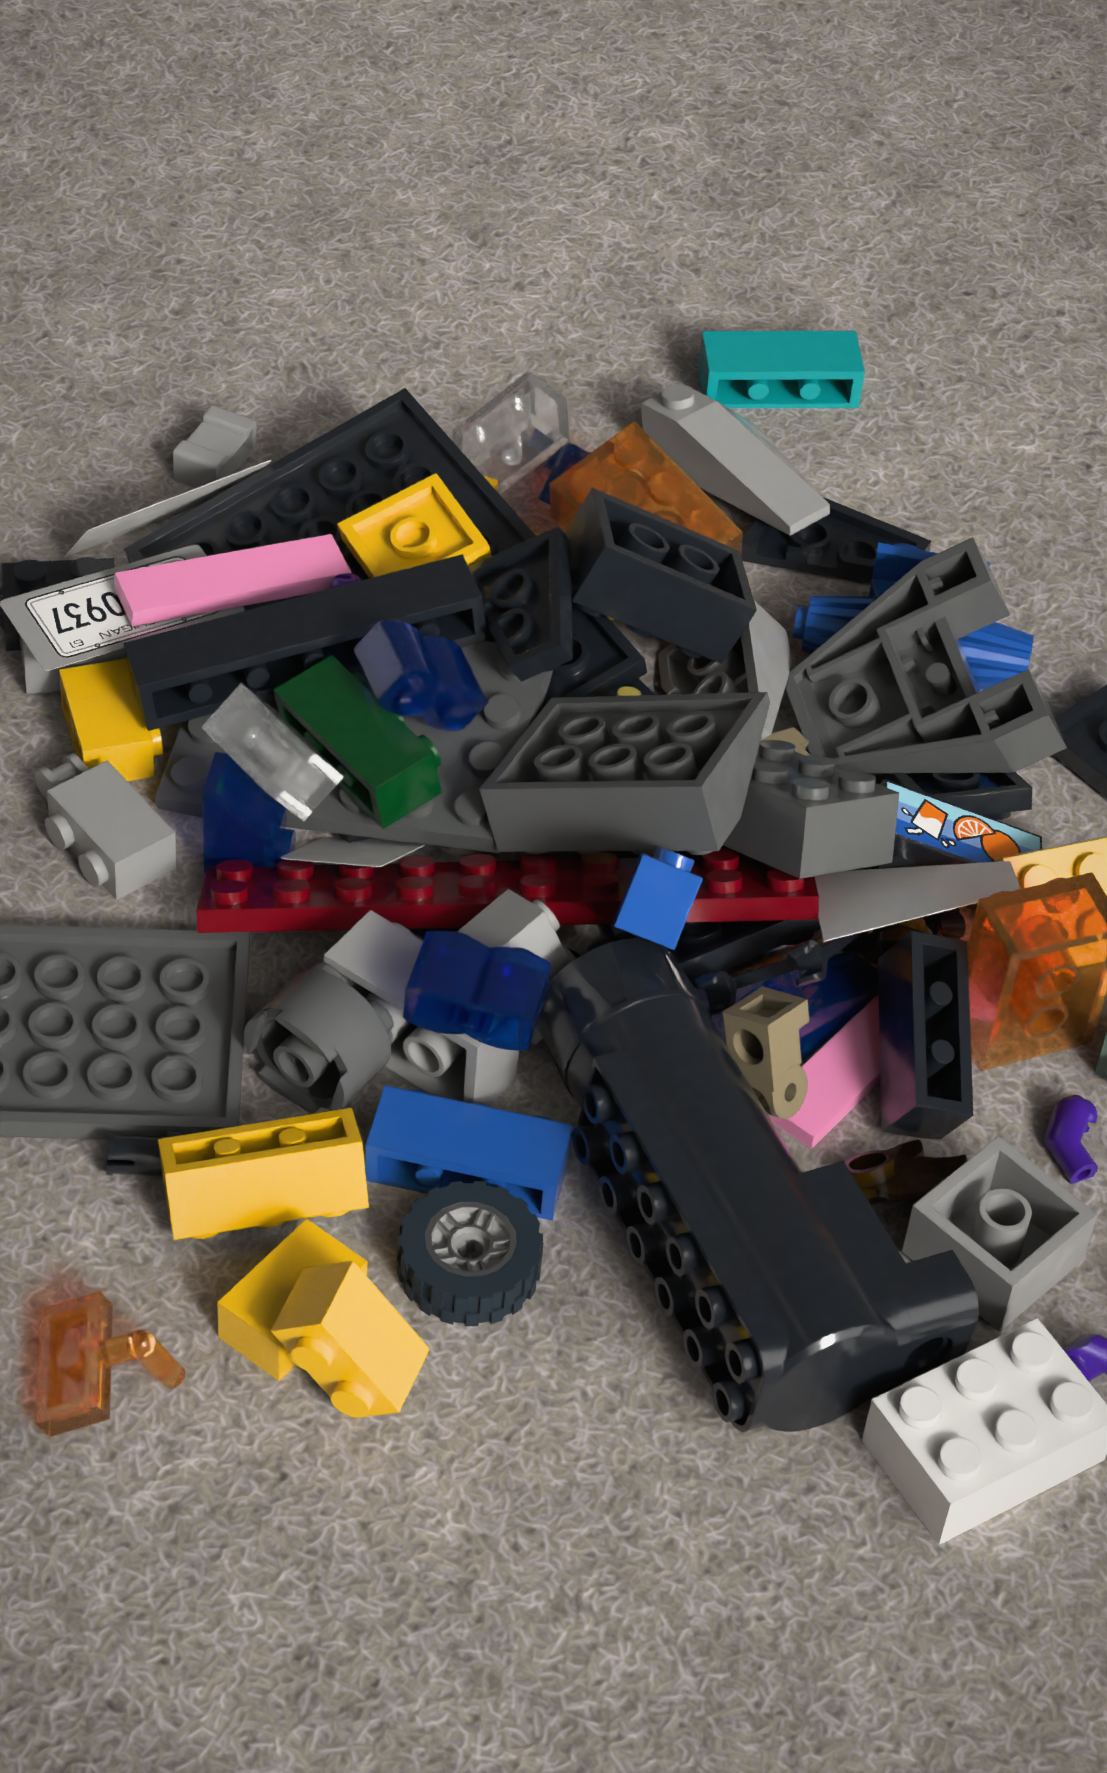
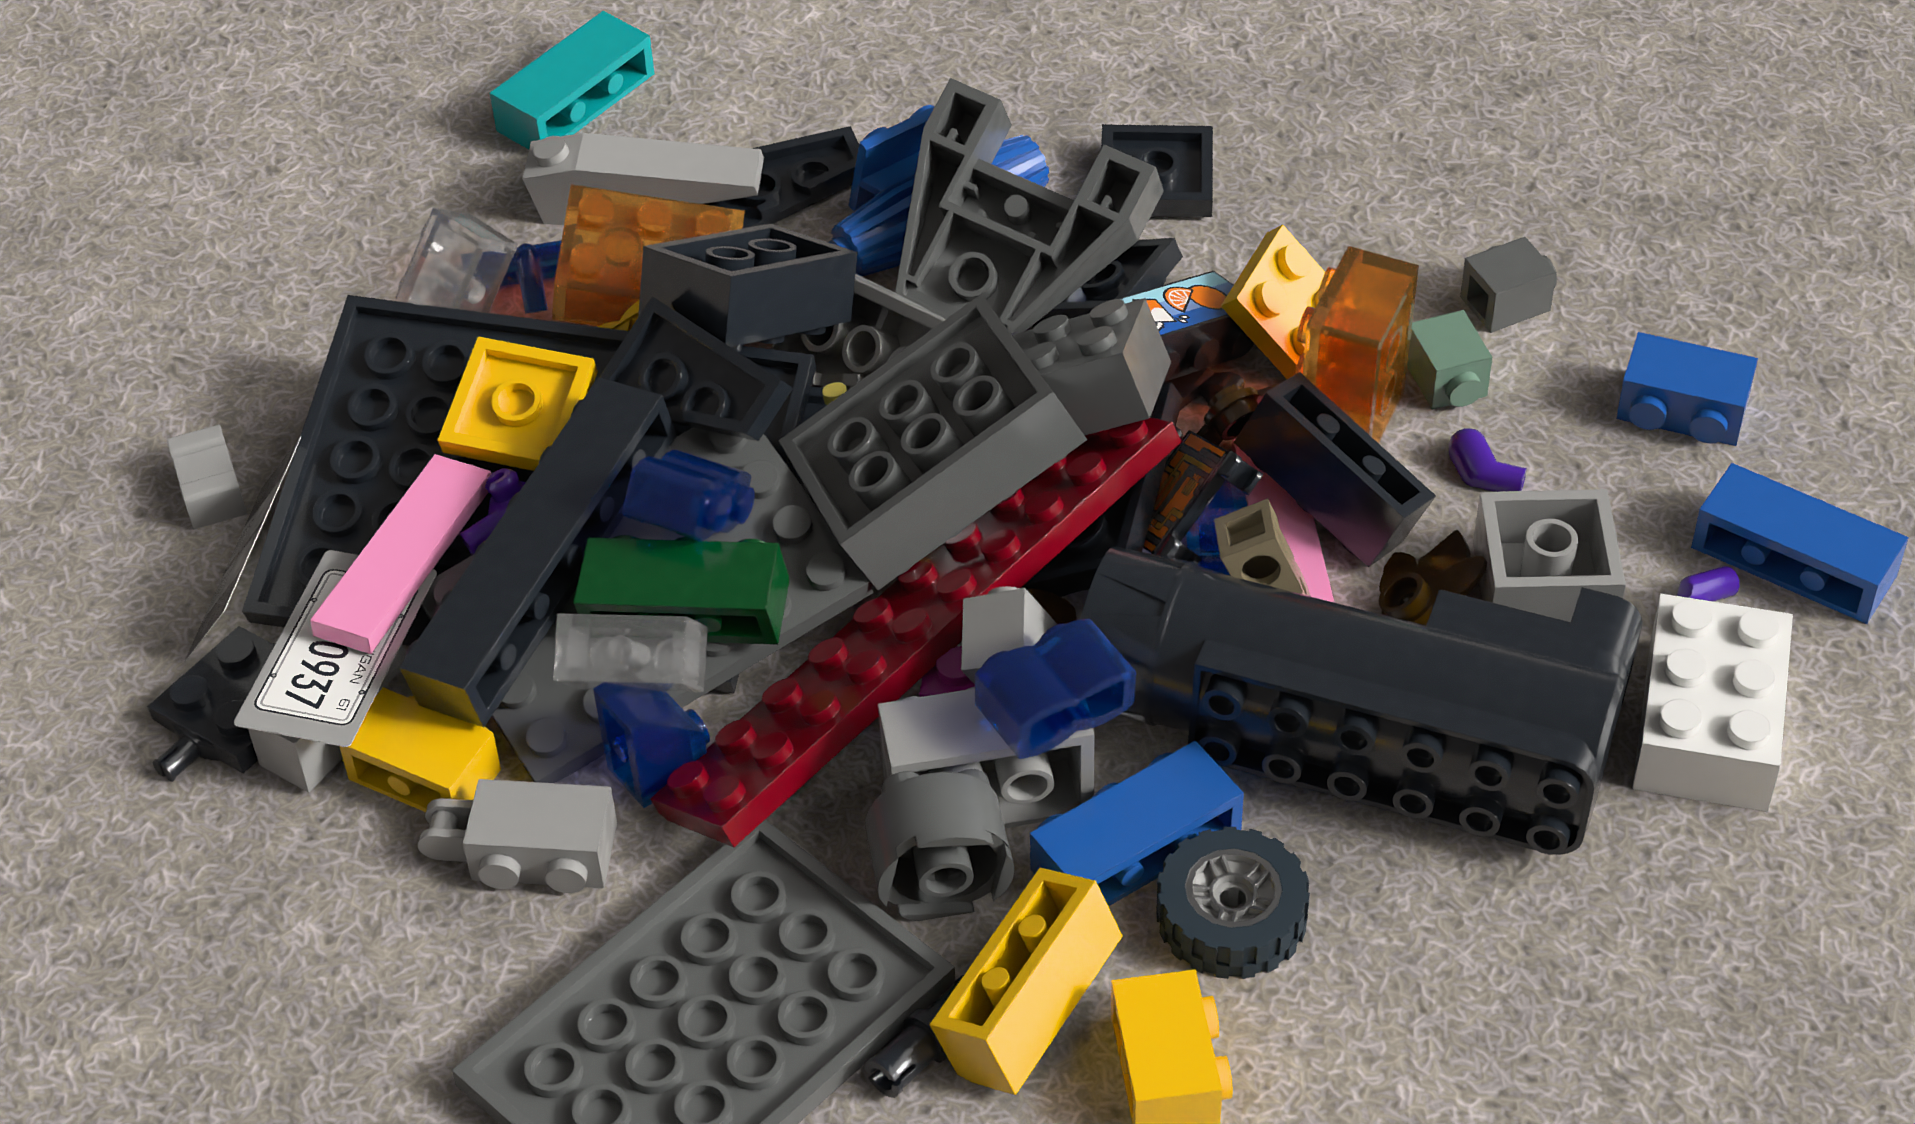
camera: 40 degrees left, 0 degrees up
(350, 1340) = (1267, 1035): yellow brick -> none
(362, 853) = (757, 687): white sticker -> none
(658, 897) = (1087, 509): blue brick -> none
(882, 897) = (1224, 371): white sticker -> none

